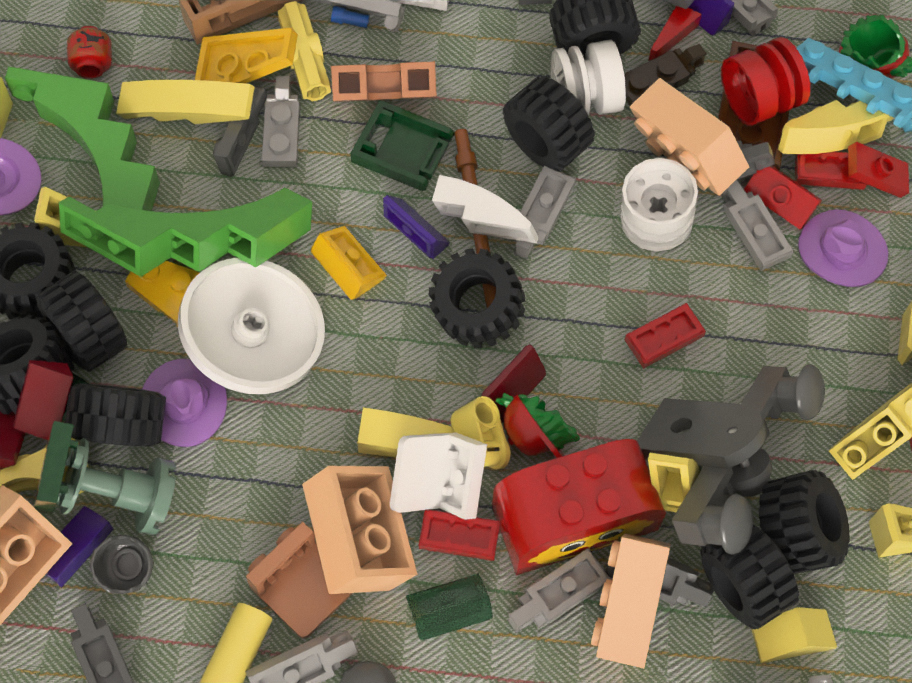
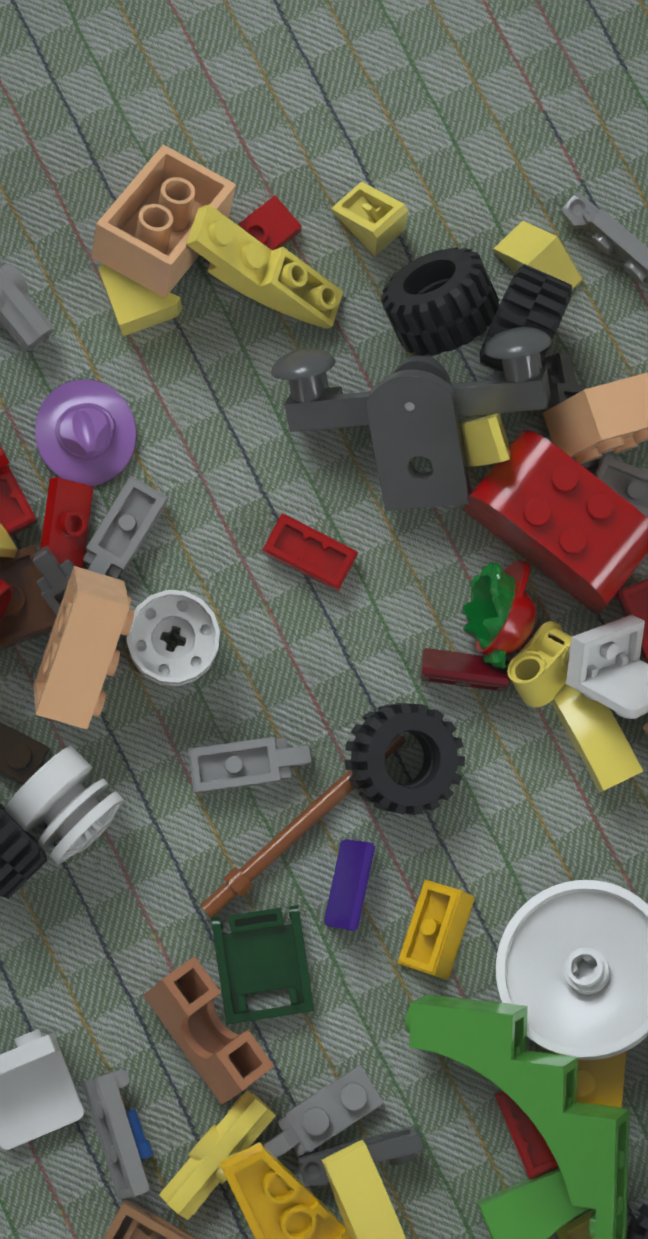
camera: 125 degrees left, 15 degrees up
(481, 210) = (300, 816): white slope -> none
(548, 123) = (153, 810): black tyre -> none

